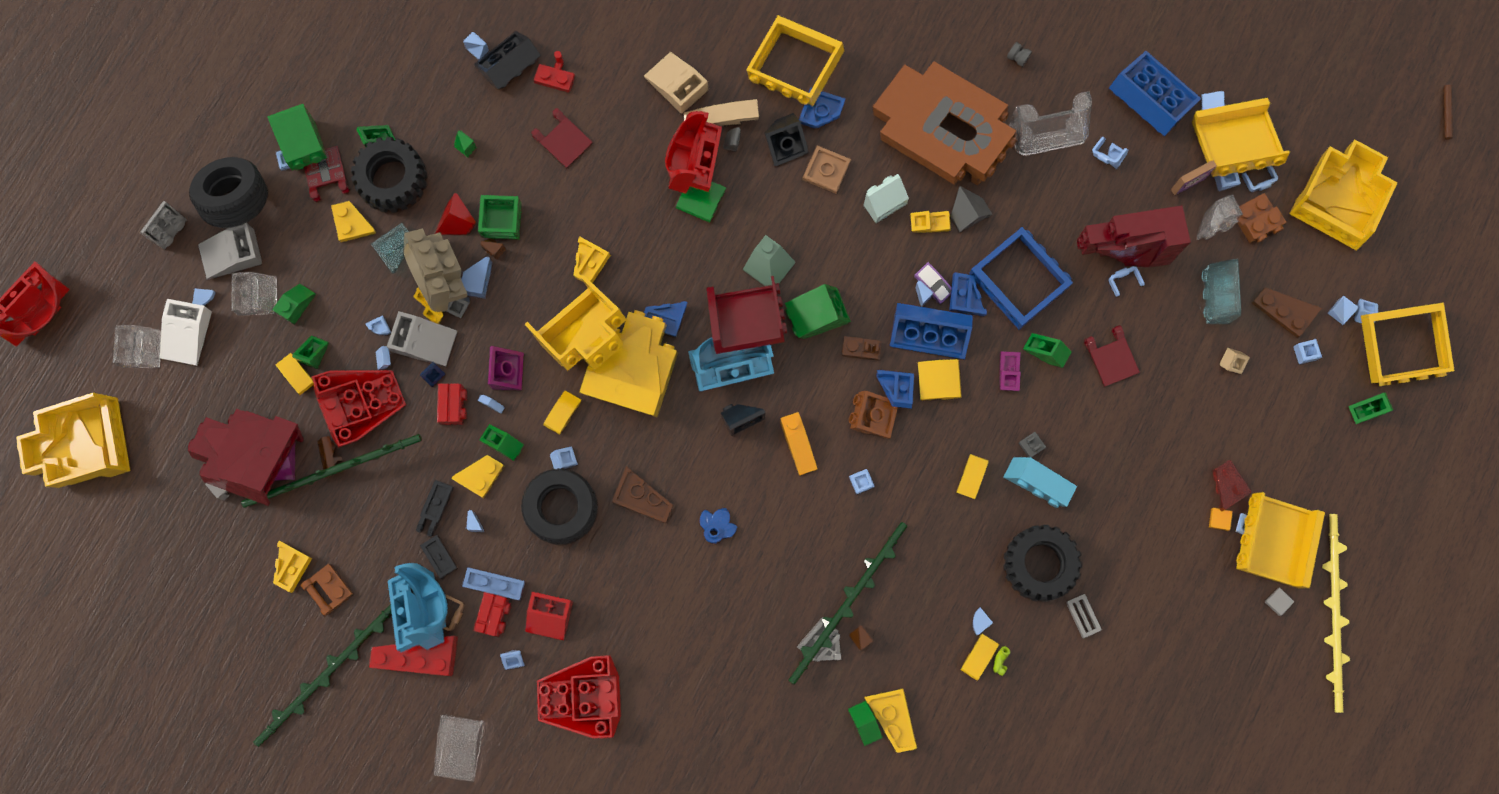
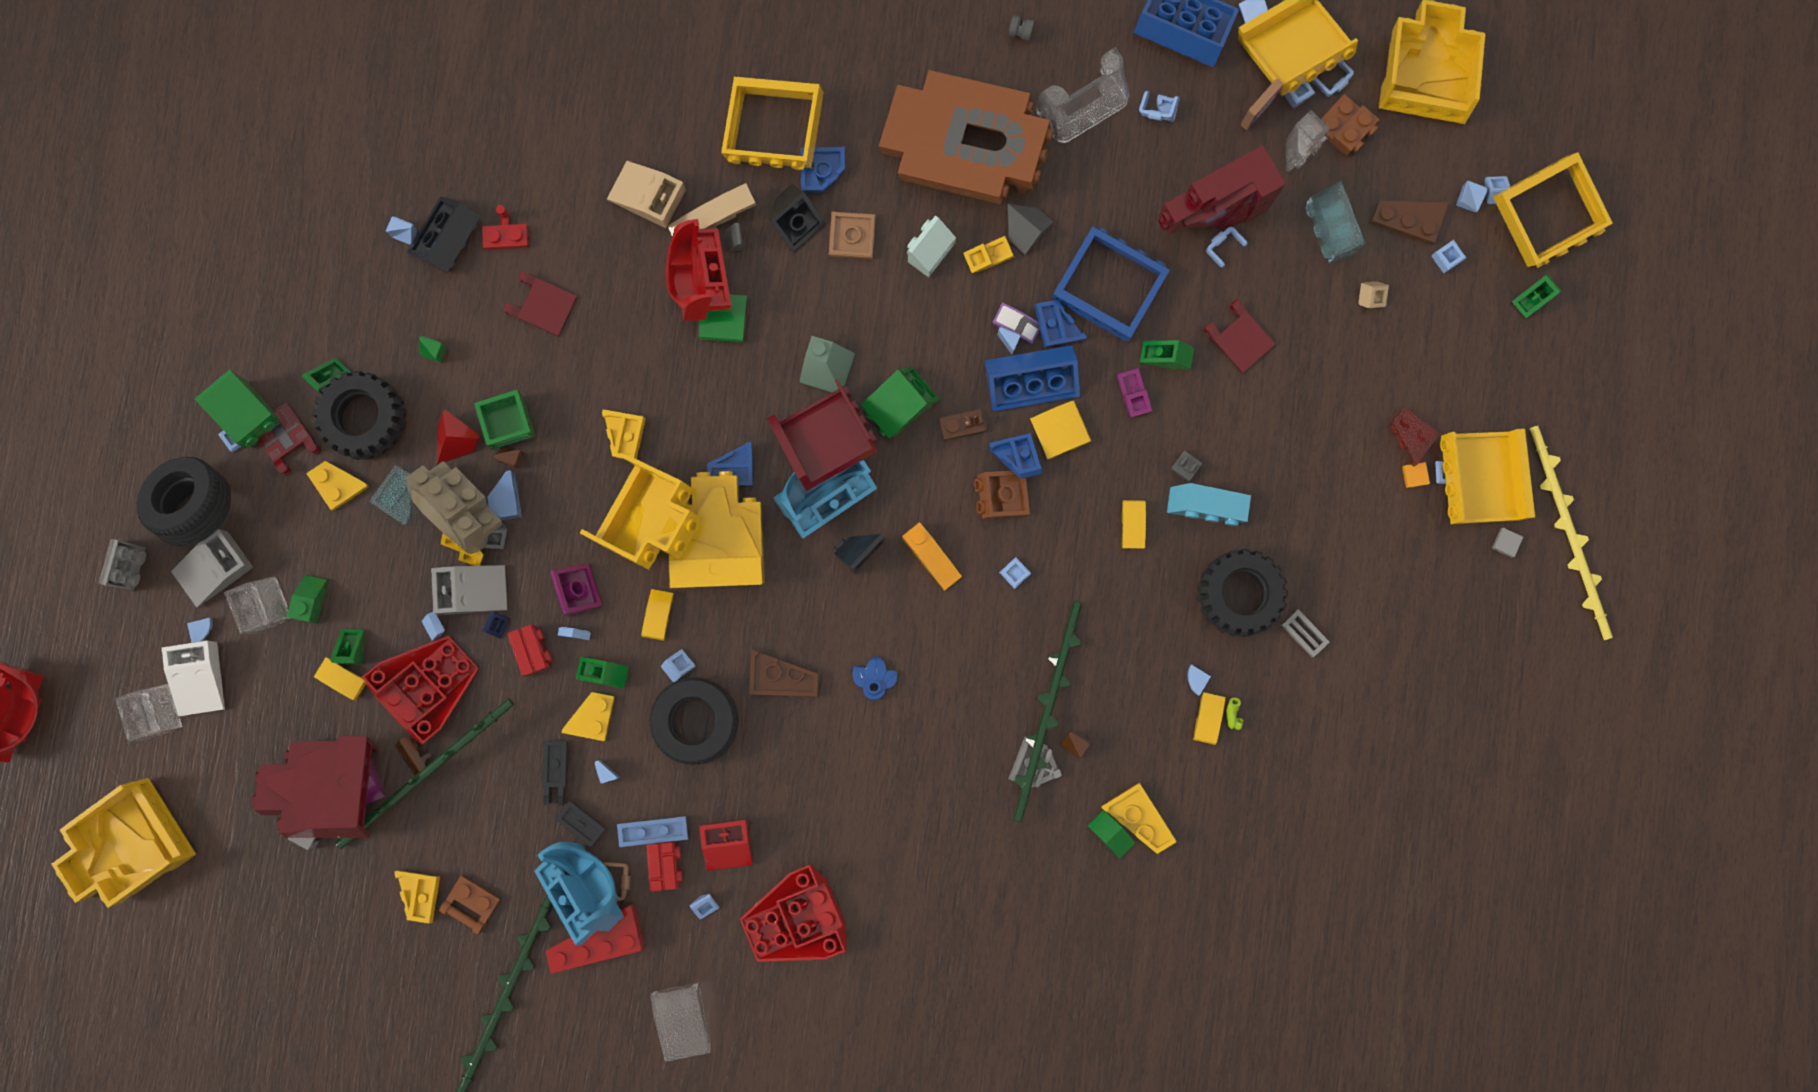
camera: 25 degrees left, 5 degrees up
(379, 326) = (414, 591): light blue tile -> none

